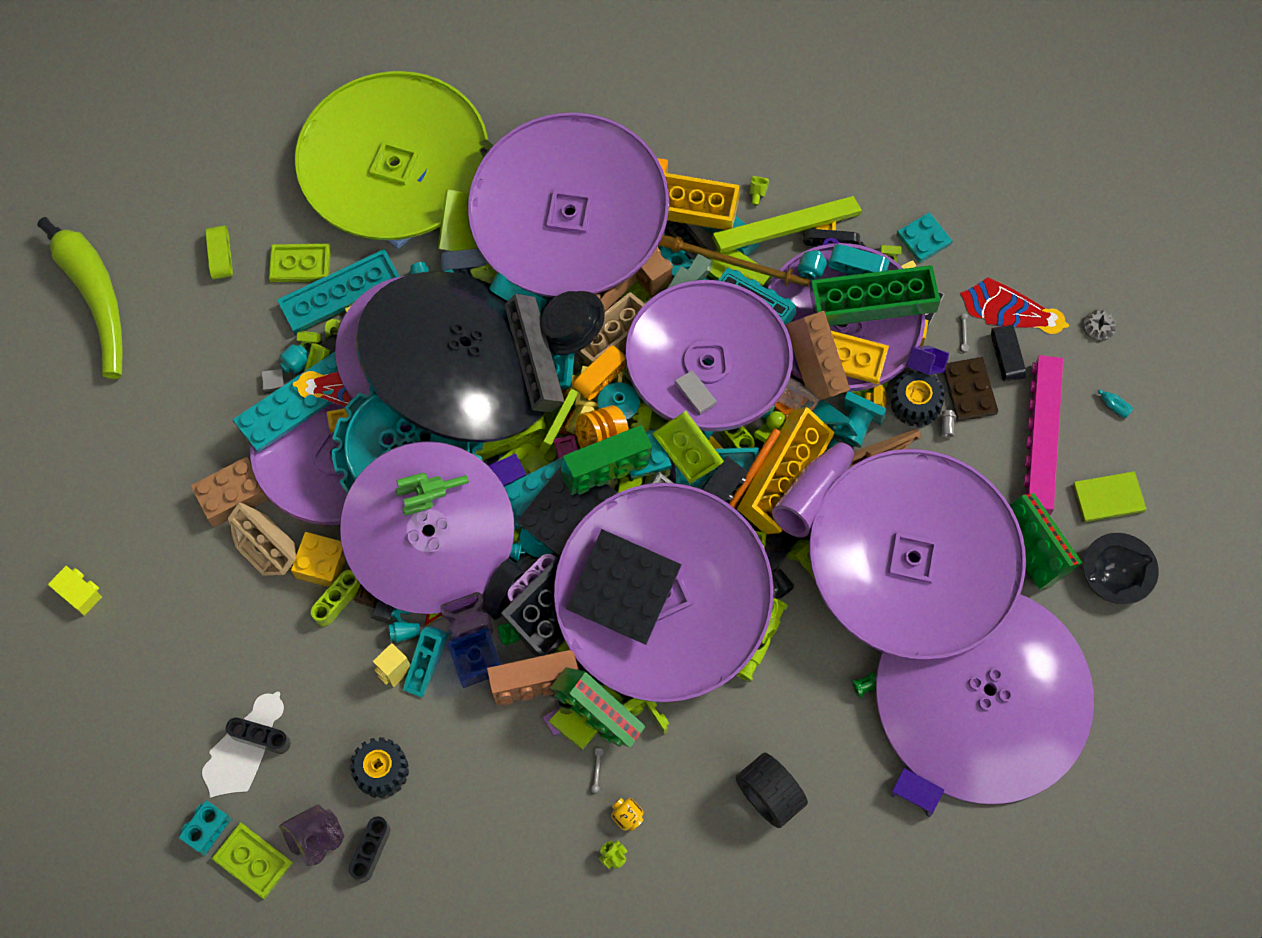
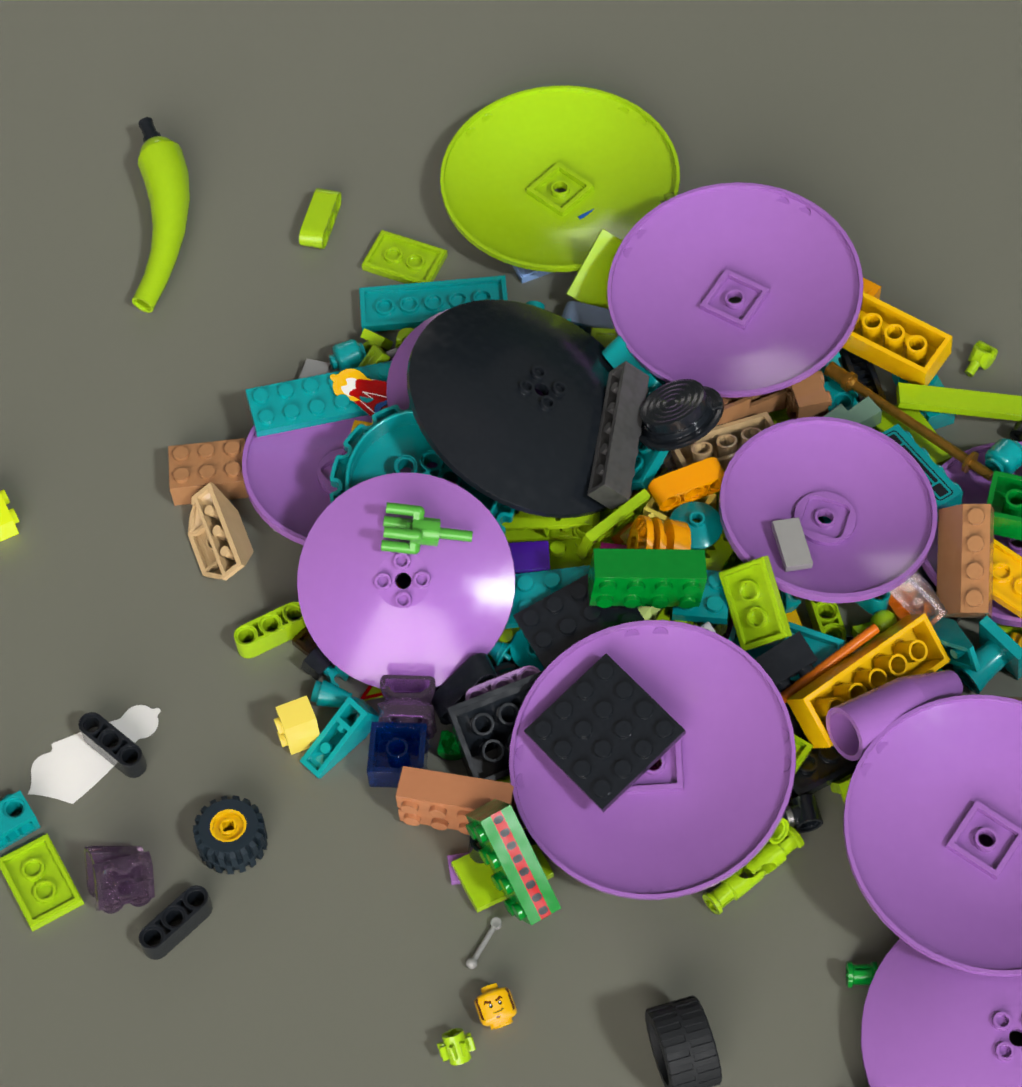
camera: 25 degrees right, 10 degrees down
(319, 560) = (269, 579): yellow brick -> none
(636, 706) = (564, 887): lime bracket -> none

